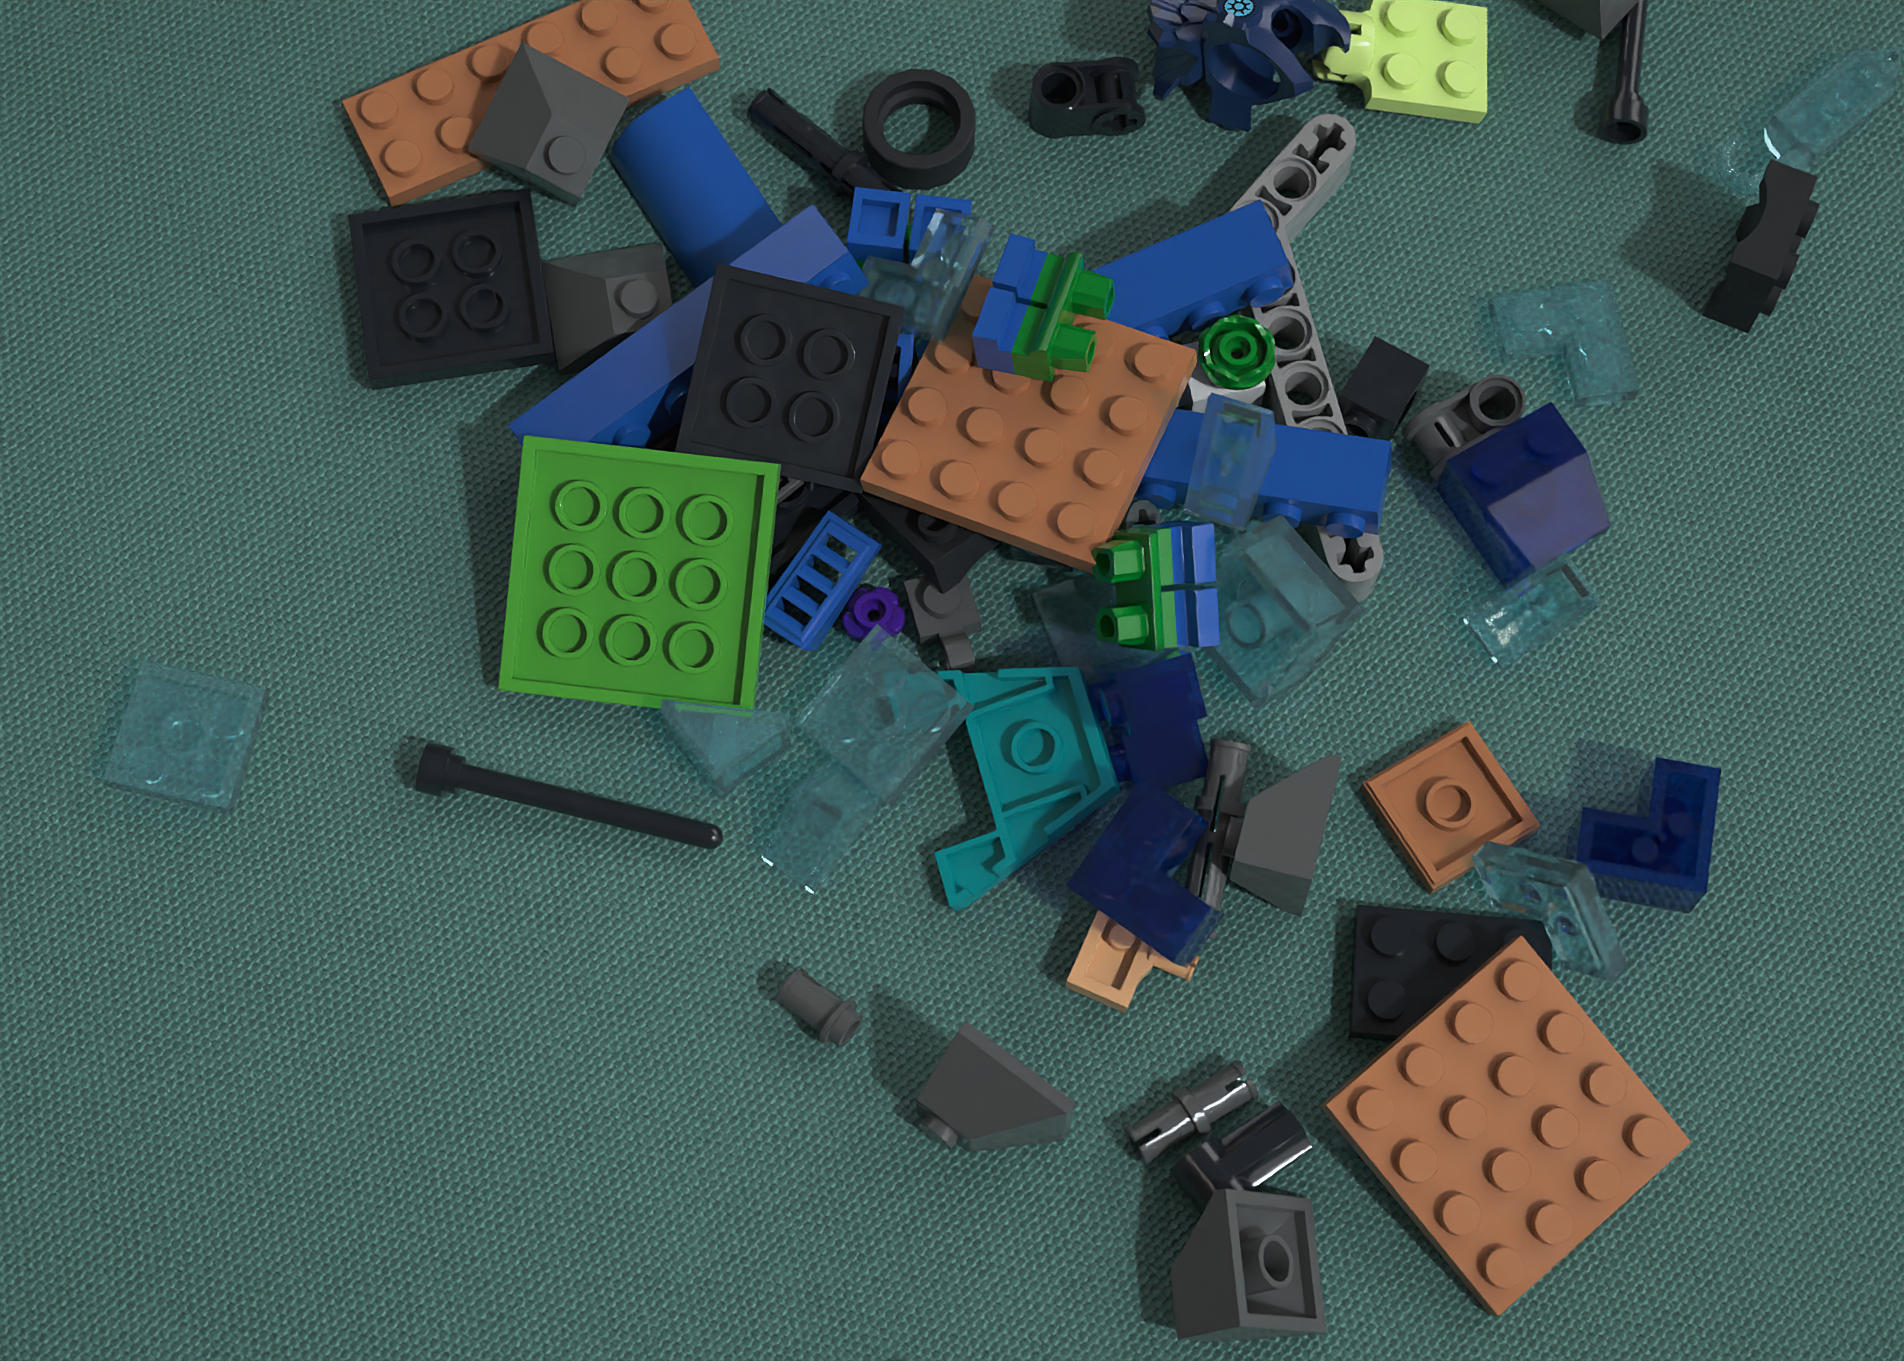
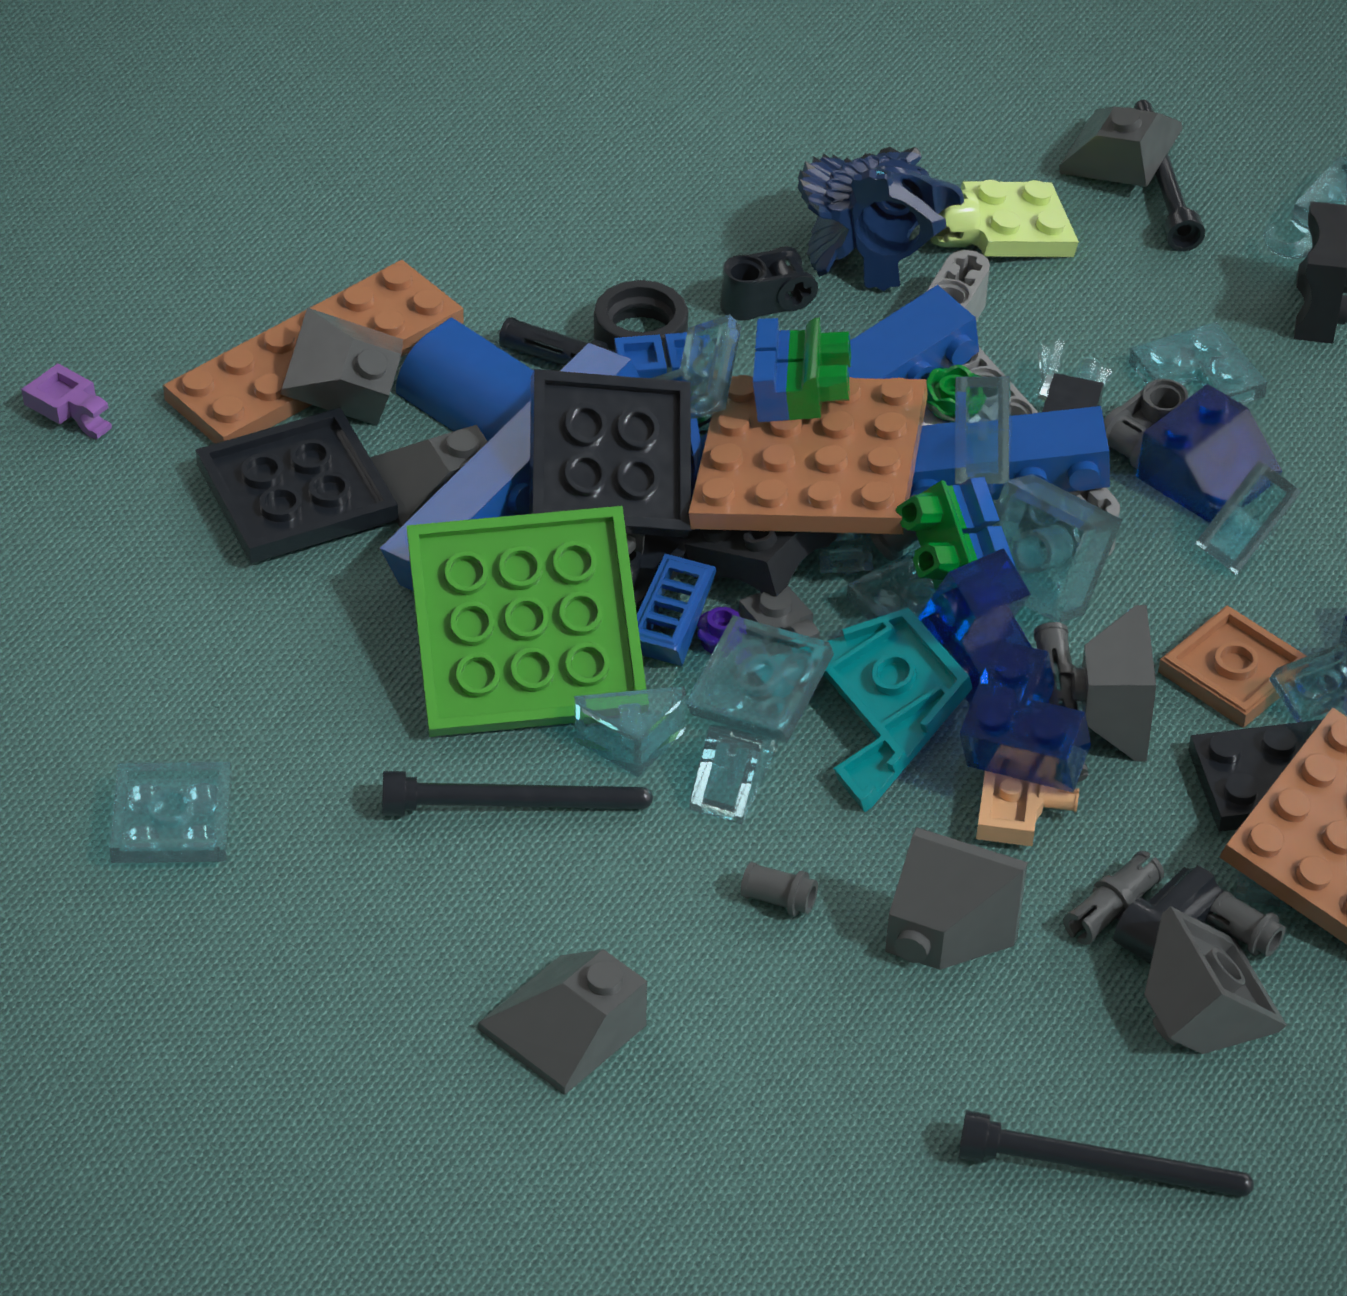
camera: 15 degrees left, 25 degrees down
(225, 94) = (66, 394): none -> medium lavender plate
(533, 1126) = (570, 1016): none -> dark grey slope
(1327, 1189) = (1258, 931): none -> dark grey pin
(1428, 327) = (1049, 362): none -> clear light blue piece

